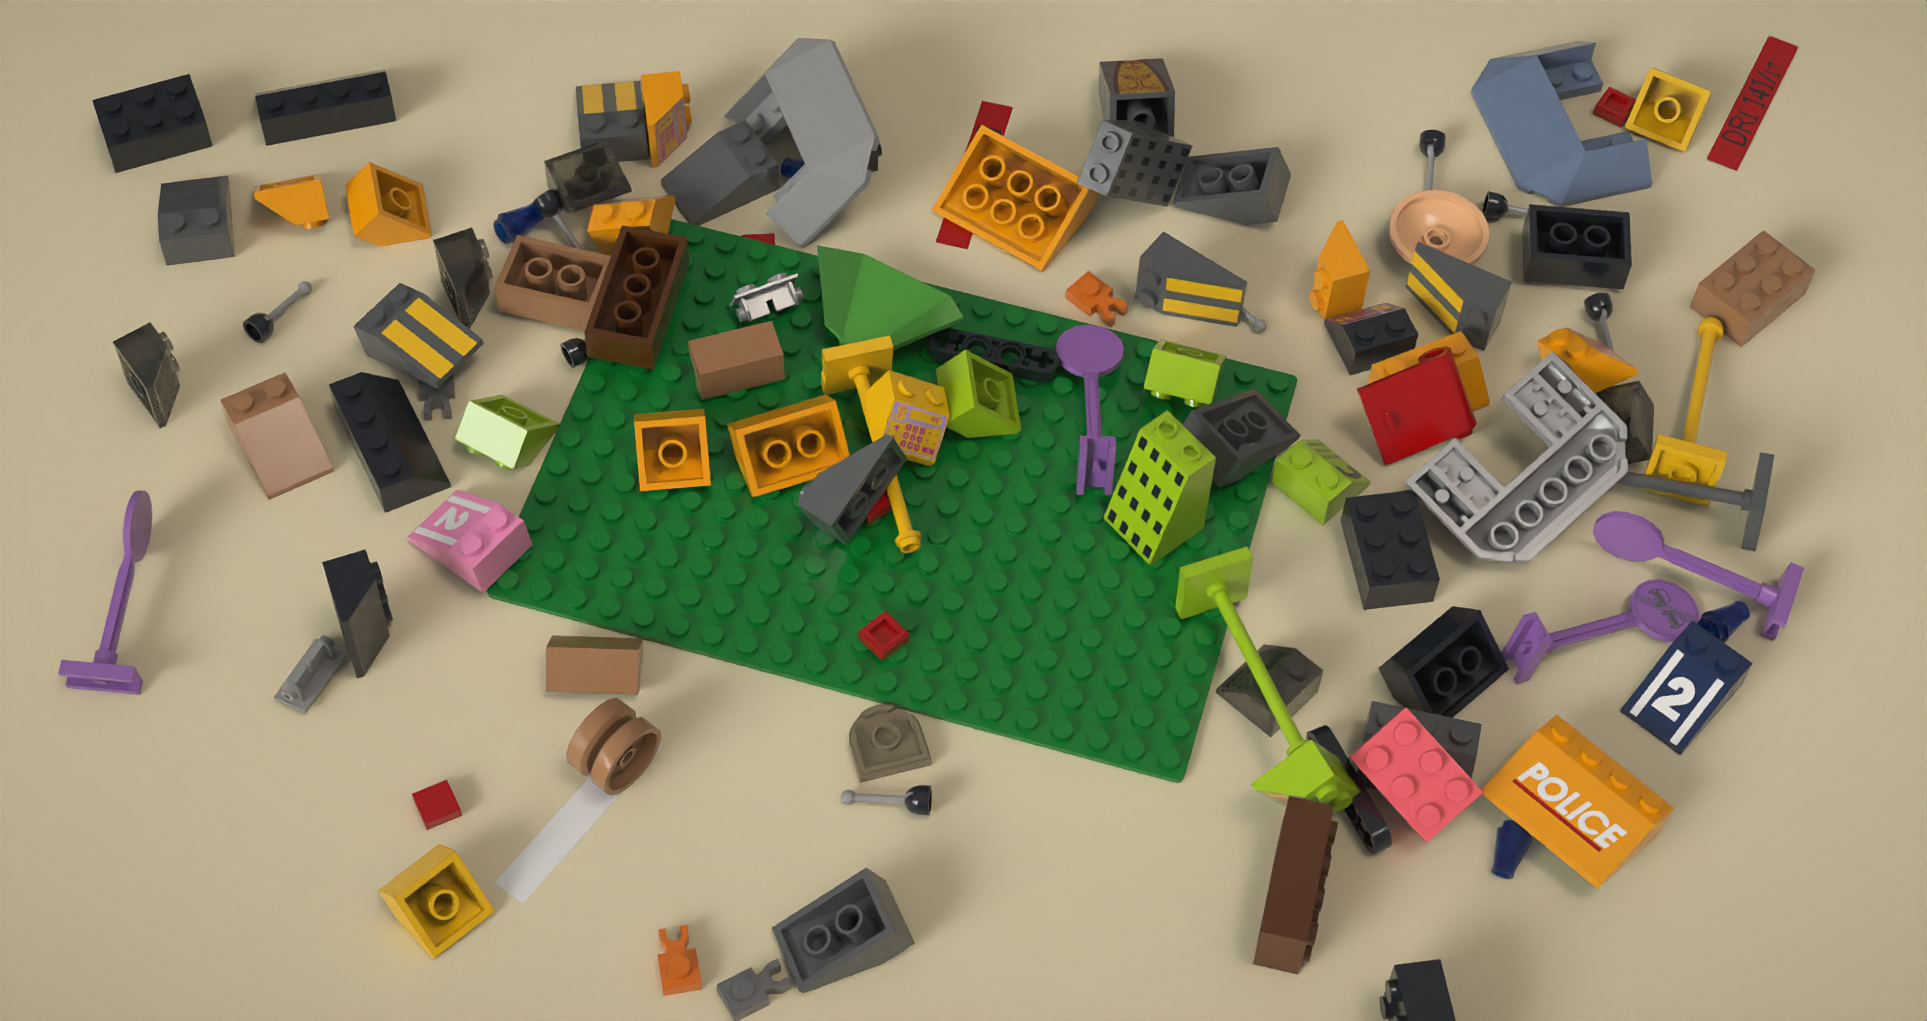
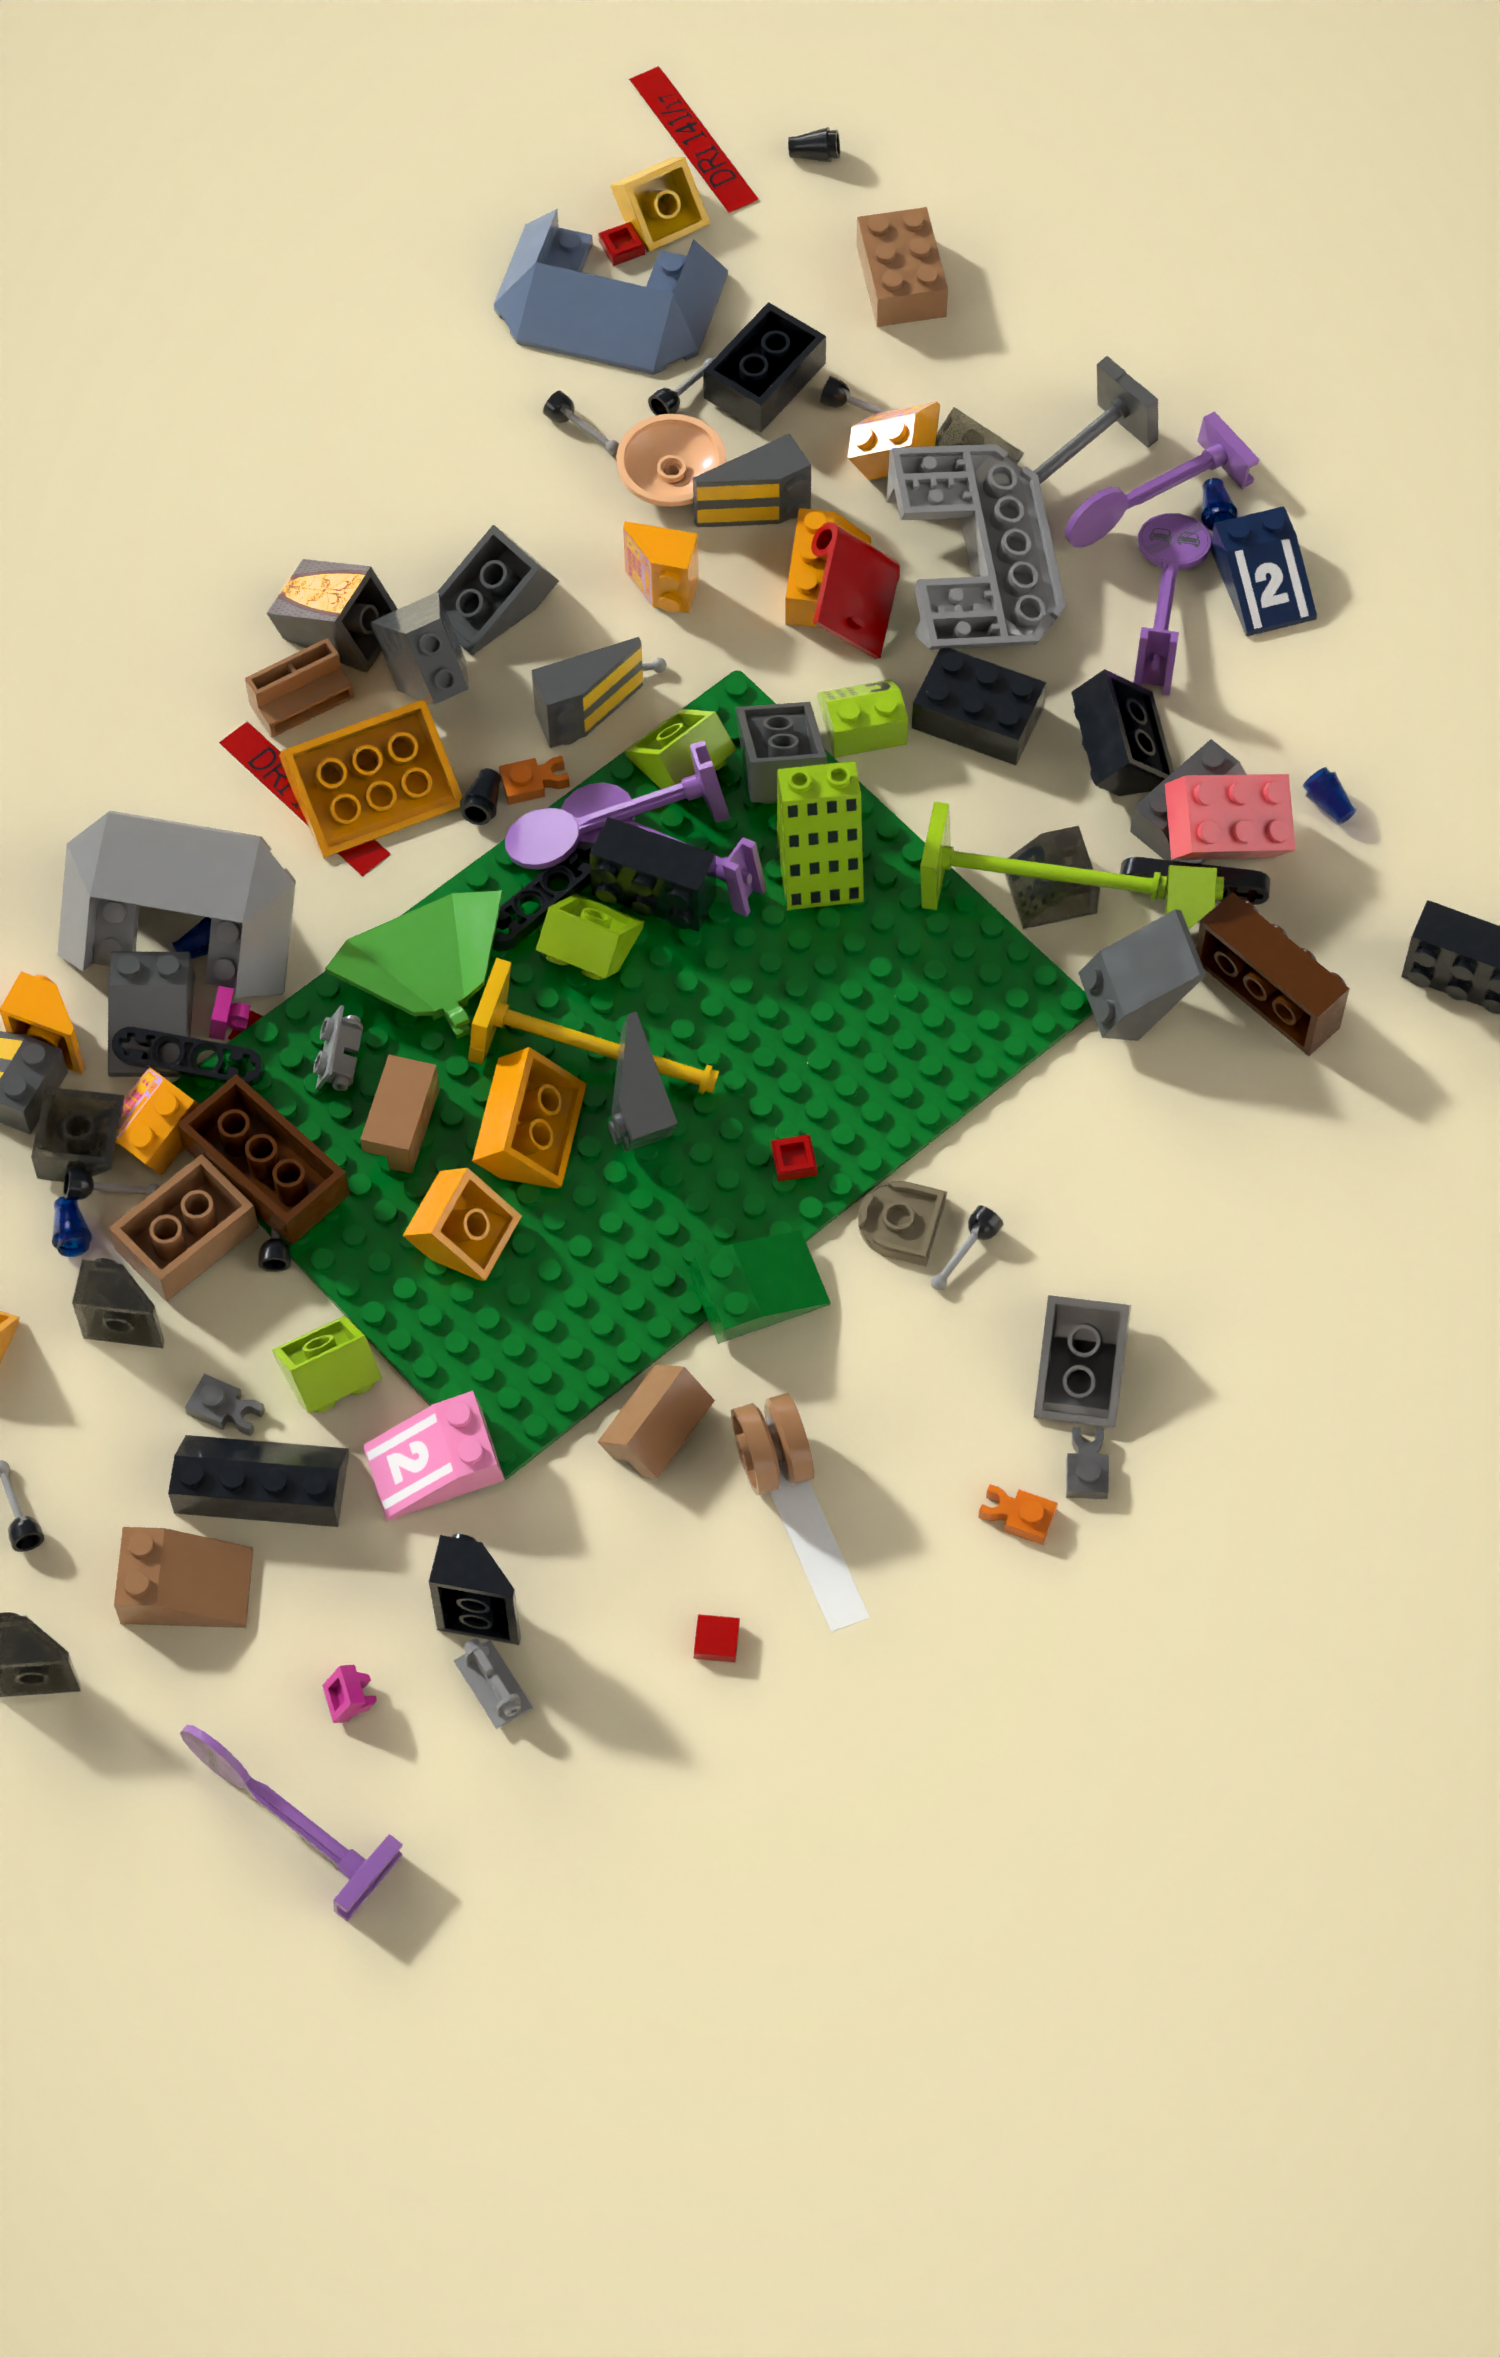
camera: 55 degrees left, 5 degrees up
(237, 589) = (345, 1693): none -> dark pink tile
(416, 336) = (159, 1386): dark grey slope -> none
(437, 900) = (826, 1685): yellow slope -> none
(697, 212) = (187, 1060): none -> black beam
(752, 218) = (227, 1014): none -> dark pink tile
(754, 668) = (757, 1284): none -> green slope
(910, 413) = (579, 1000): yellow slope -> none
(1049, 274) = (480, 800): none -> black cone
(1050, 327) = (552, 834): none -> medium lavender piece
(1051, 404) = (653, 874): none -> black brick
(1057, 116) = (298, 688): none -> medium nougat piece
(1208, 785) = (1142, 977): none -> dark grey slope
(1371, 335) = (737, 581): black slope -> none
(1578, 801) = (1325, 715): light orange slope -> none
(1684, 458) = (1046, 430): yellow tile -> none
(1817, 179) = (815, 145): none -> black cone

